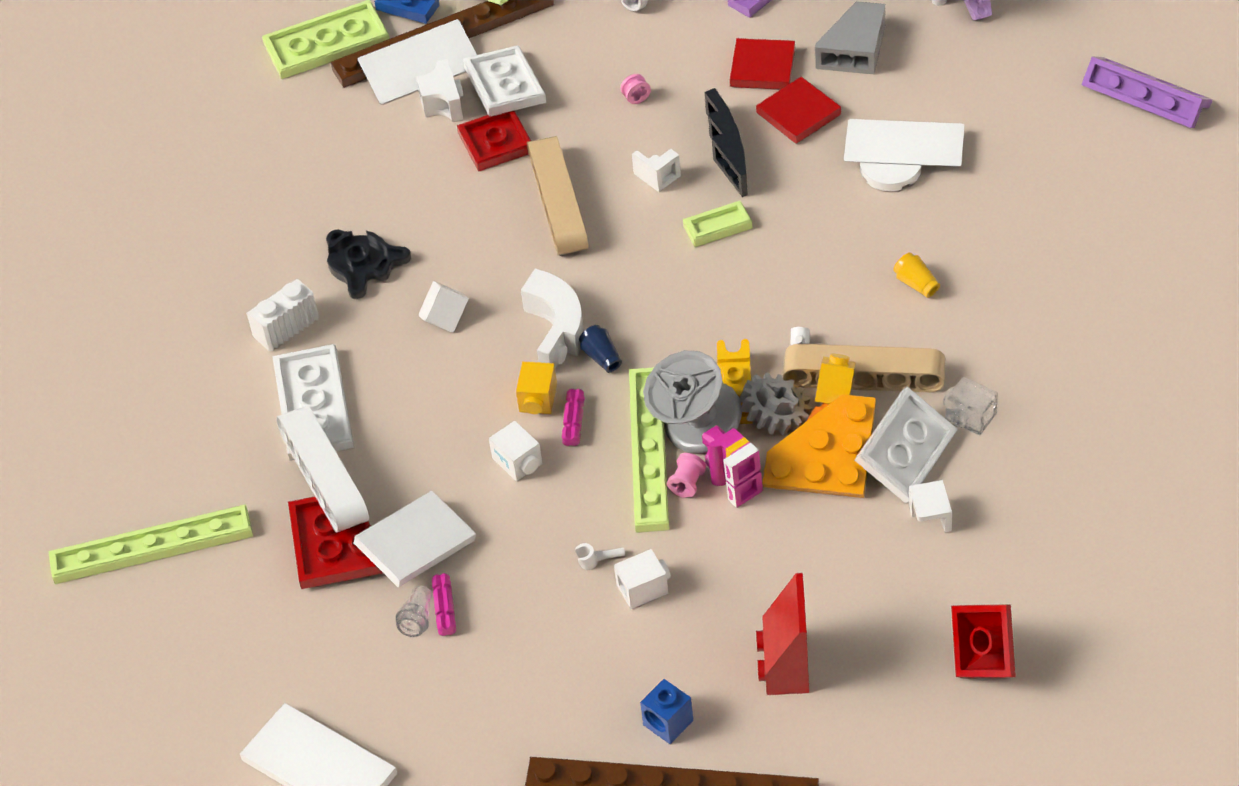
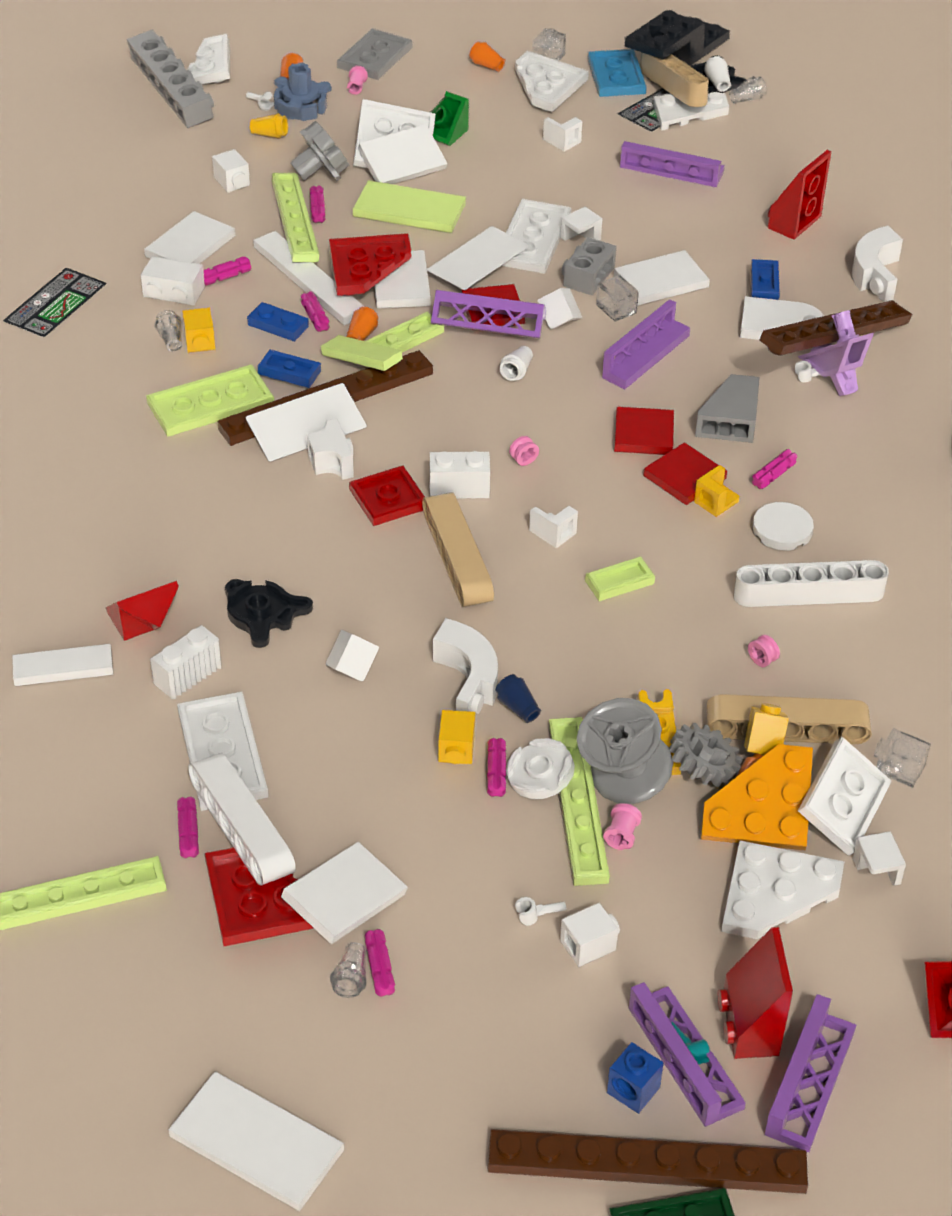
camera: 10 degrees left, 5 degrees down
(166, 318) = (62, 664): none -> white tile
(244, 264) = (143, 611): none -> red slope
(275, 476) = (187, 827): none -> dark pink axle
(504, 80) = (392, 440): white tile -> none
(515, 451) = (442, 801): white brick -> none
(567, 116) = (461, 473): none -> white brick
(614, 418) = (540, 769): none -> white tile
(713, 694) = (678, 1059): none -> medium lavender fence
(726, 141) = (623, 505): black slope -> none
(726, 687) = (698, 1048): none -> teal hand
(733, 463) = (672, 813): dark pink hips -> none
(800, 335) = (718, 686): white hand -> none
(820, 705) = (799, 1066): none -> medium lavender fence
(823, 130) = (712, 494): none -> yellow panel
(829, 533) = (776, 888): none -> white plate
(850, 298) = (763, 650): none -> bright pink bush
(891, 102) = (774, 469): none -> dark pink axle
(904, 142) = (794, 504): white sticker -> none
(907, 226) = (810, 583): none -> white beam
(915, 273) = (825, 628): yellow cone -> none

